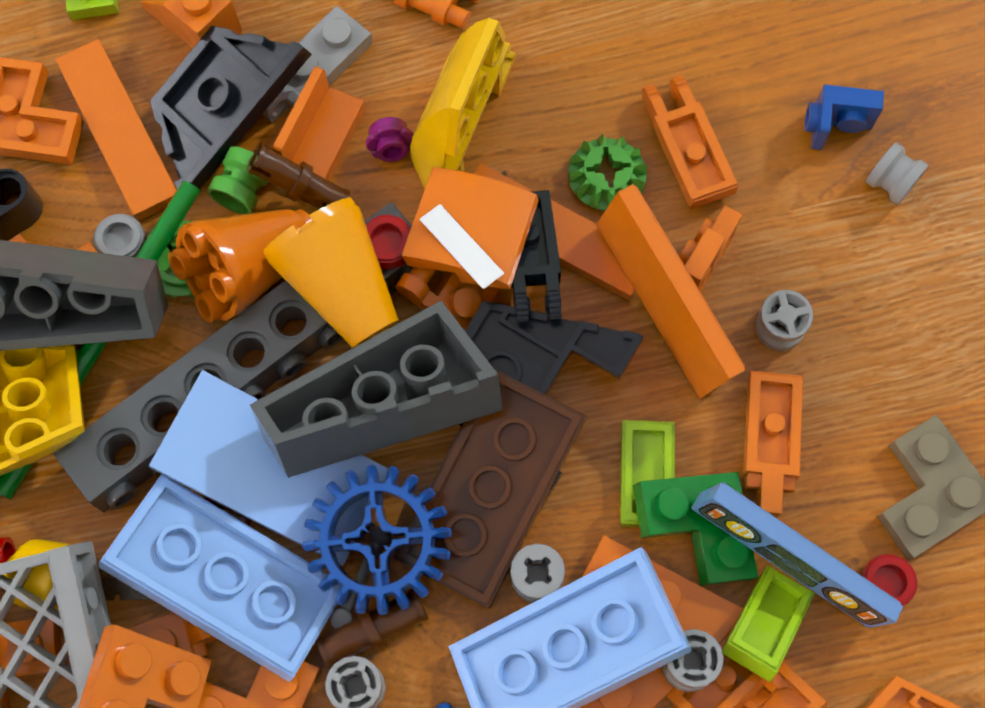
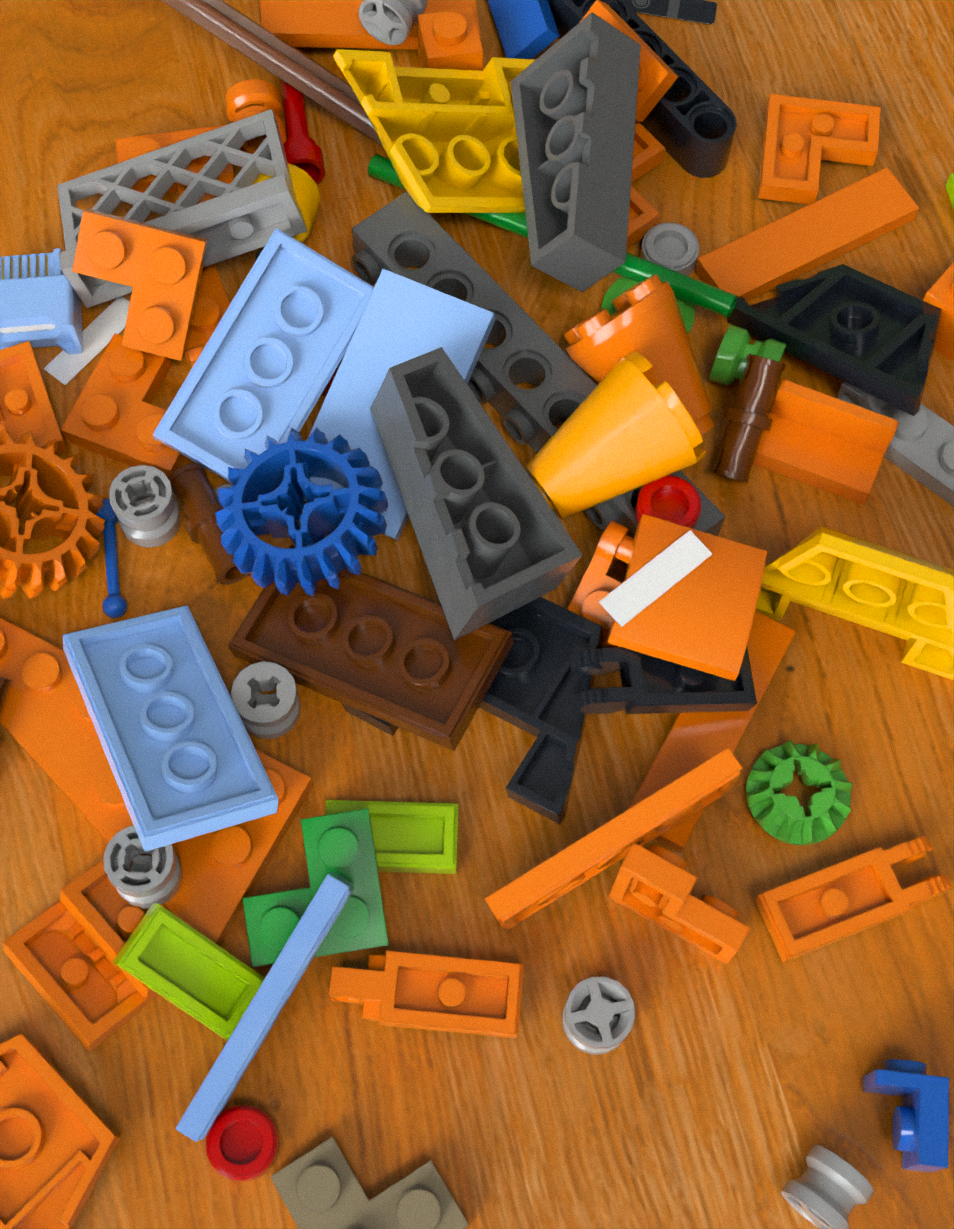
camera: 85 degrees right, 5 degrees down
(389, 139) = (816, 513): magenta plate -> none

